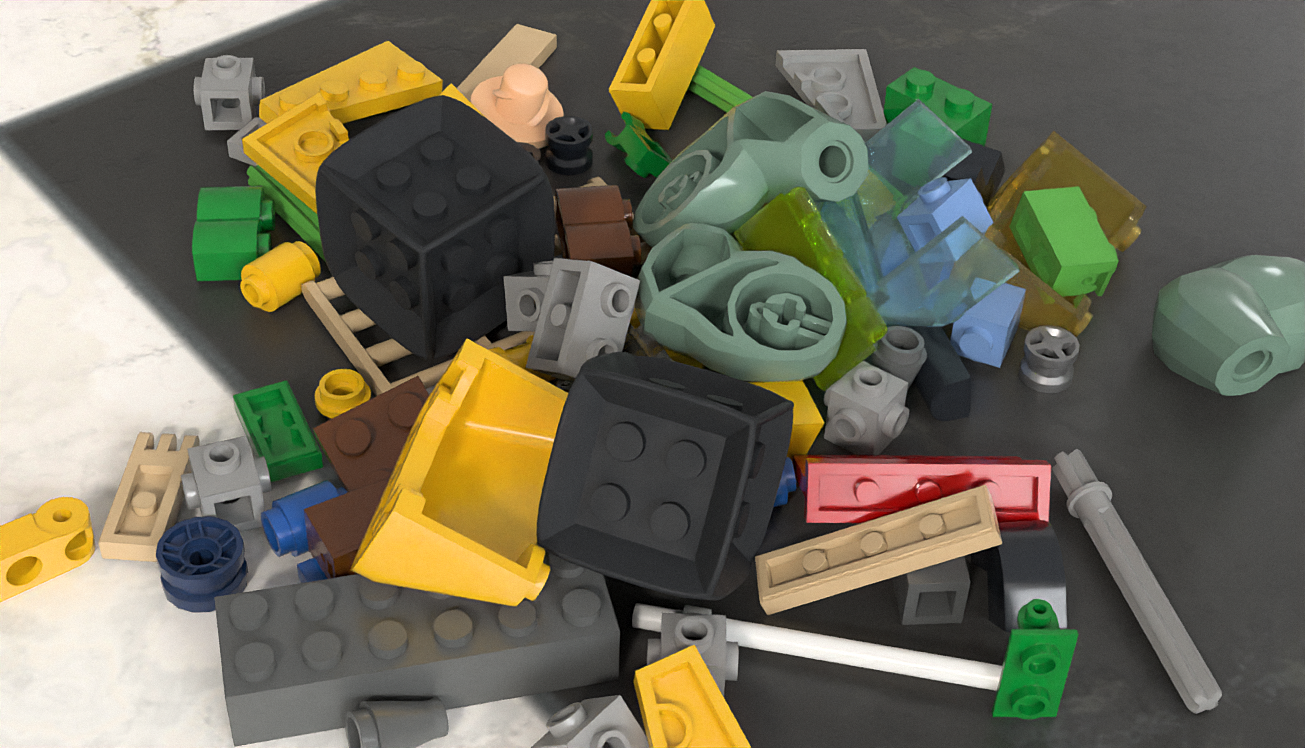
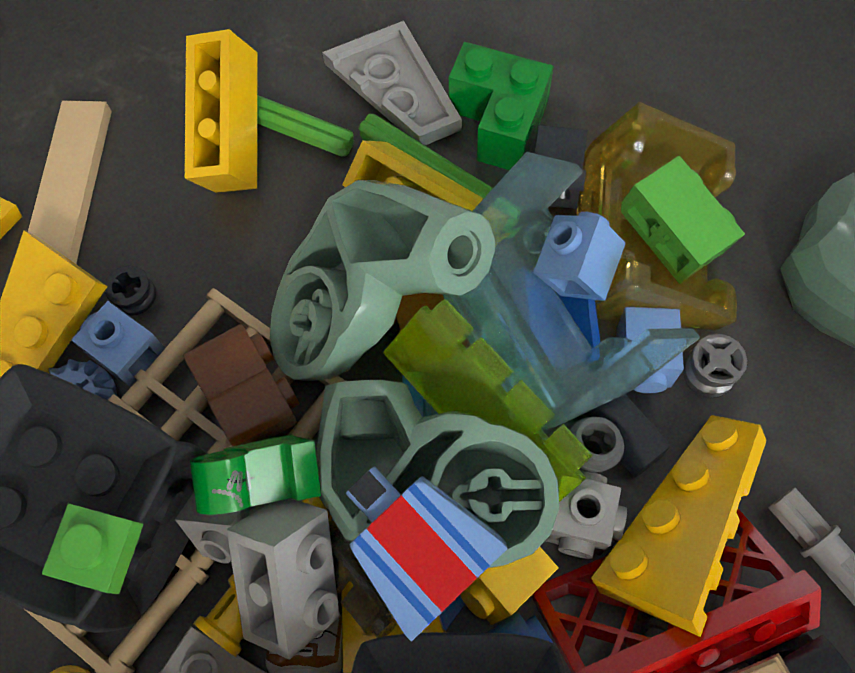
camera: 15 degrees left, 25 degrees up
(458, 204) = (92, 549): none -> bright green plate
(518, 103) = (102, 227): light nougat plate -> none
(569, 145) = (166, 237): black wheel -> none
(575, 234) = (255, 475): none -> green leg
(644, 153) = (243, 232): green plate -> none
(713, 305) = (419, 548): none -> torso
(944, 429) = (677, 539): none -> yellow wing

